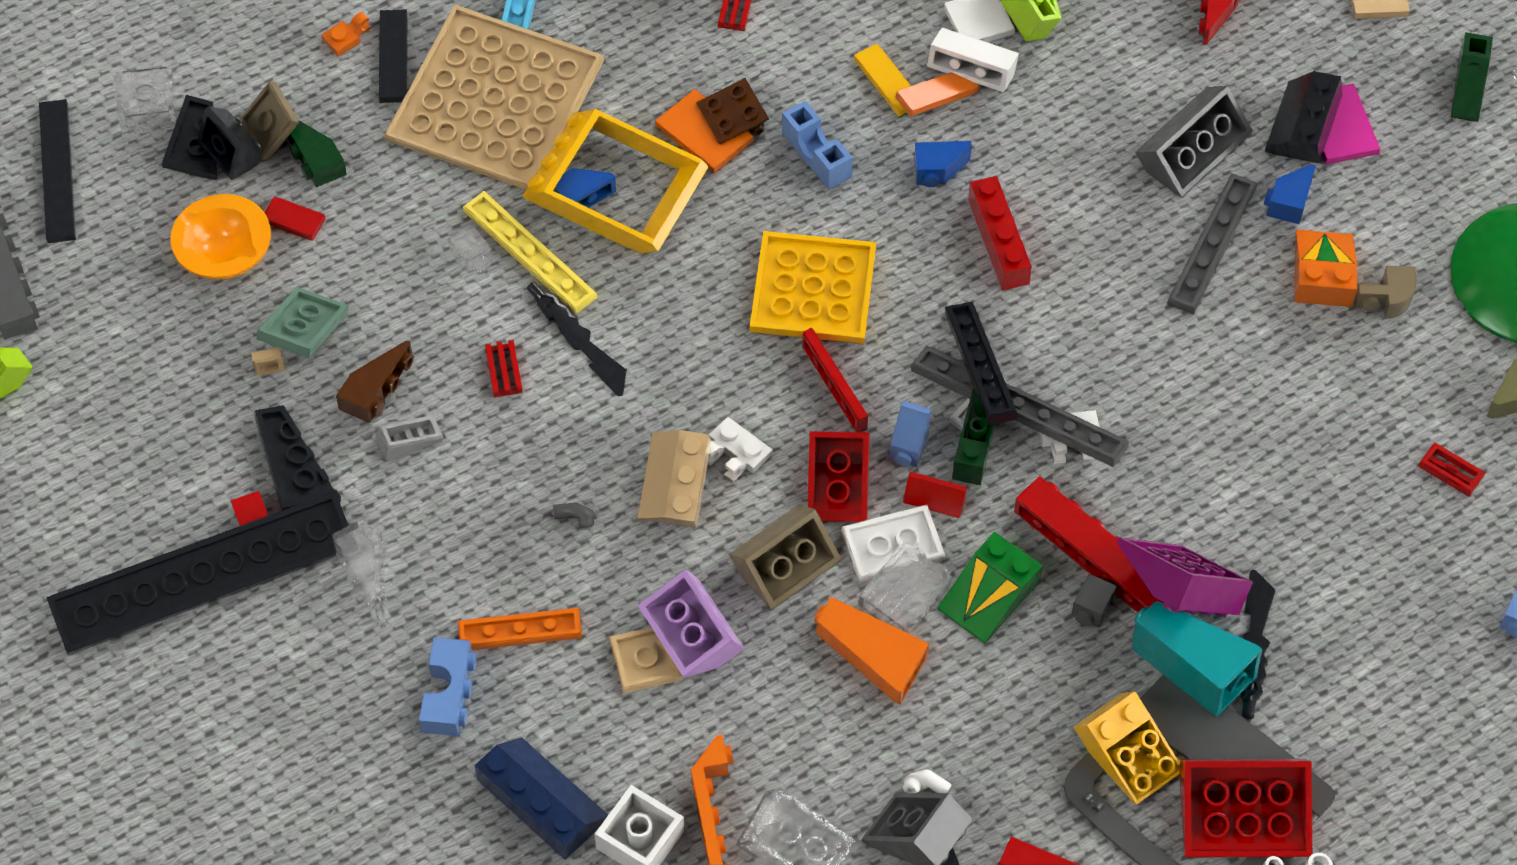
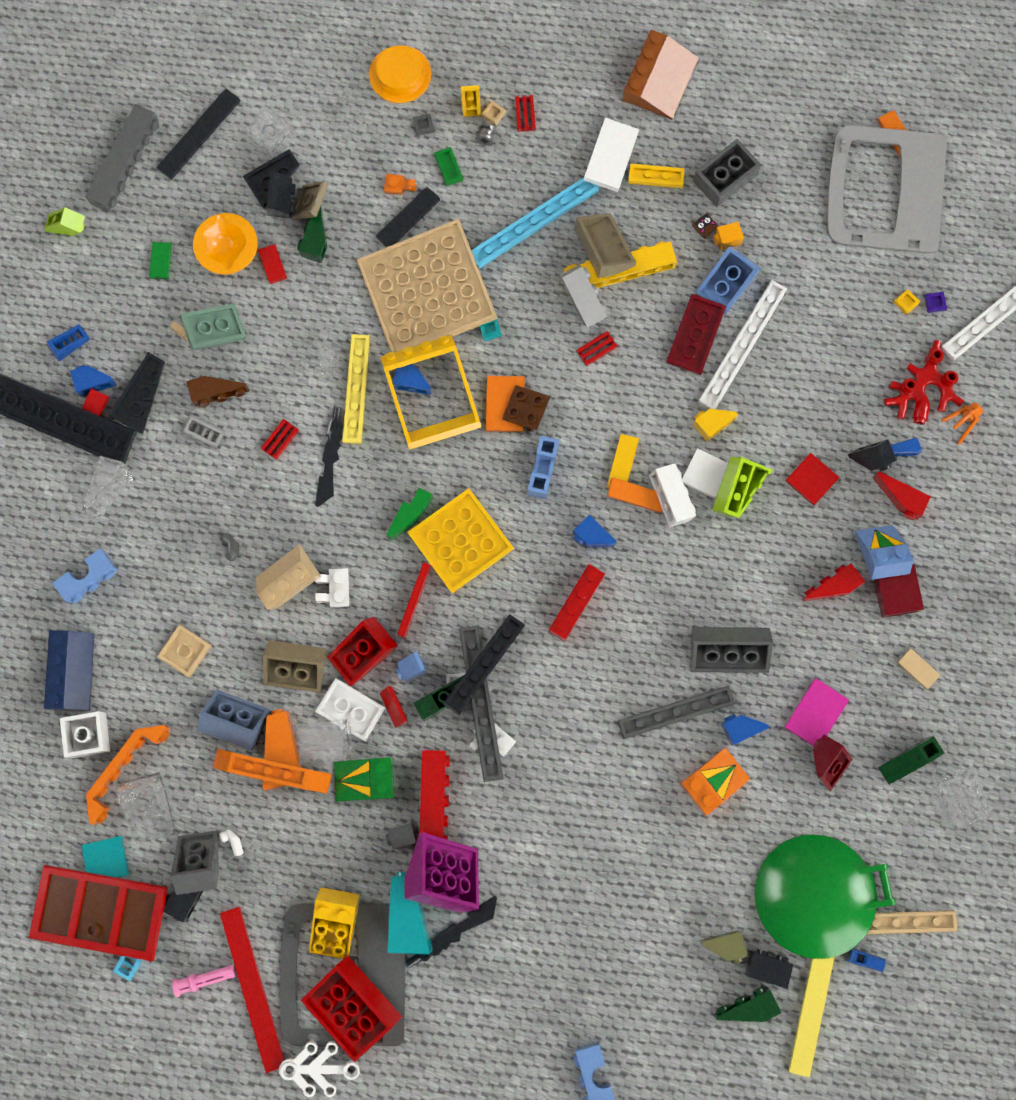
camera: 50 degrees right, 20 degrees up
(142, 506) = (66, 350): none -> blue slope
(158, 321) = (160, 260): none -> green tile
(213, 494) = (88, 378): none -> blue slope
(521, 628) = (148, 579): orange tile -> none
(609, 78) = (490, 330): none -> teal plate
(690, 626) = (214, 658): lavender slope -> none
(729, 306) = (410, 513): none -> green slope
(784, 667) = (233, 719): none -> sand blue slope
(880, 665) = (272, 771): none -> orange slope
(1305, 116) = (798, 695): black slope -> none
(1393, 294) = (728, 835): dark tan brick -> none
(1402, 142) = (830, 760): none -> dark red slope
(1450, 473) = (640, 952): red tile -> none

